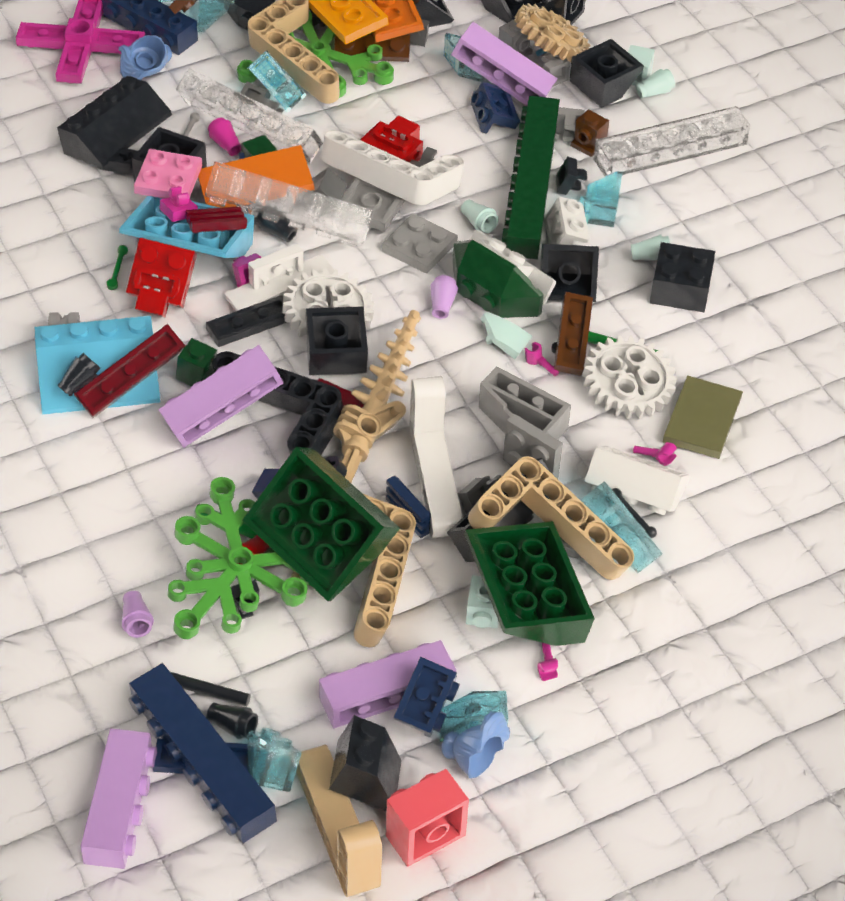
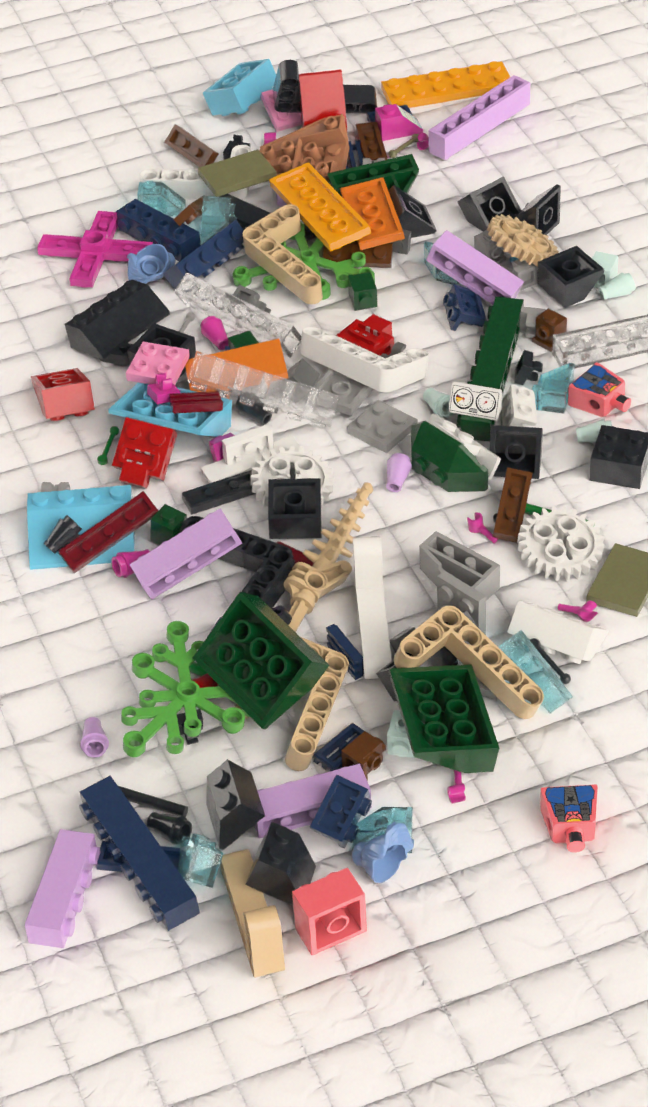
camera: 10 degrees right, 5 degrees down
(61, 207) = (63, 393): none -> slope
(148, 405) = (122, 562): none -> dark pink cone
(208, 46) = (208, 254): none -> dark blue brick
(277, 81) = (266, 284): clear light blue slope -> none
(303, 691) = (232, 802): none -> black slope
(382, 88) = (362, 291): none -> dark green brick
(411, 641) = (334, 762): none -> dark blue tile
(442, 624) = (364, 751): none -> reddish brown brick
(505, 334) = (451, 506): light aqua slope -> none
(522, 215) = (475, 400): none -> slope
(650, 203) = (598, 392): none -> coral torso
(676, 691) = (570, 814): none -> torso

